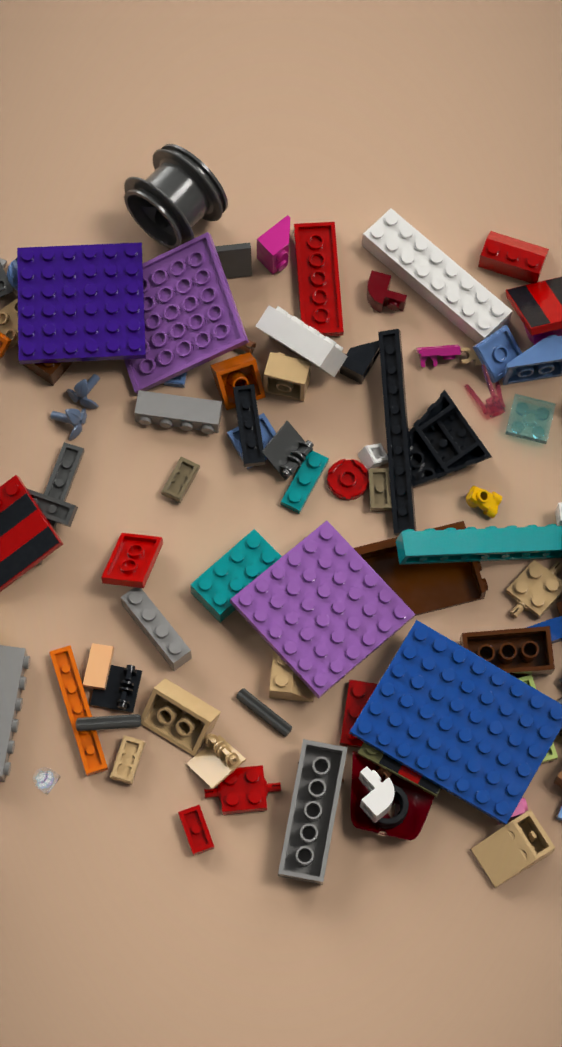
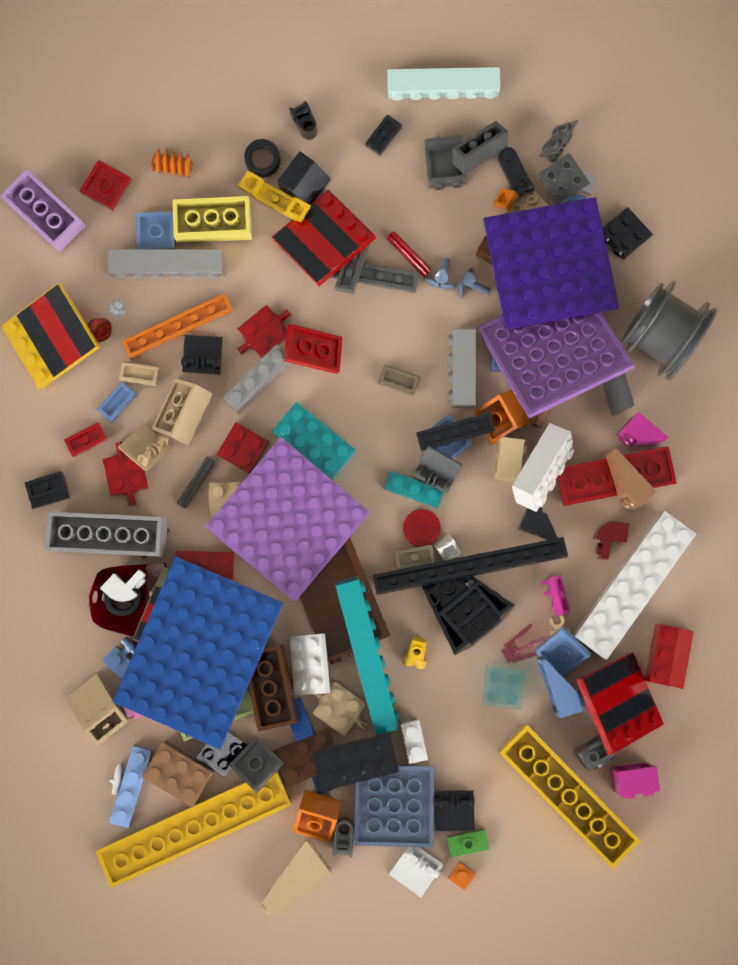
camera: 85 degrees right, 15 degrees up
(38, 451) = (408, 253): none -> red axle
(57, 230) = (625, 233): none -> black plate
(67, 798) = (100, 328): none -> clear red cone
(67, 854) = (50, 336): none -> plate
(98, 666) = (216, 336): light nougat tile -> none
(101, 616) = (263, 331): none -> red plate
(108, 722) = (167, 352): dark grey axle -> none
(156, 791) = (116, 402): none -> medium blue tile
(231, 656) = (242, 448): none -> red plate
(249, 881) = (47, 490): none -> black plate
(328, 262) = (629, 483): none -> medium nougat slope
(461, 821) = (118, 660): none -> medium blue plate
(484, 609) = (309, 664): none -> white plate

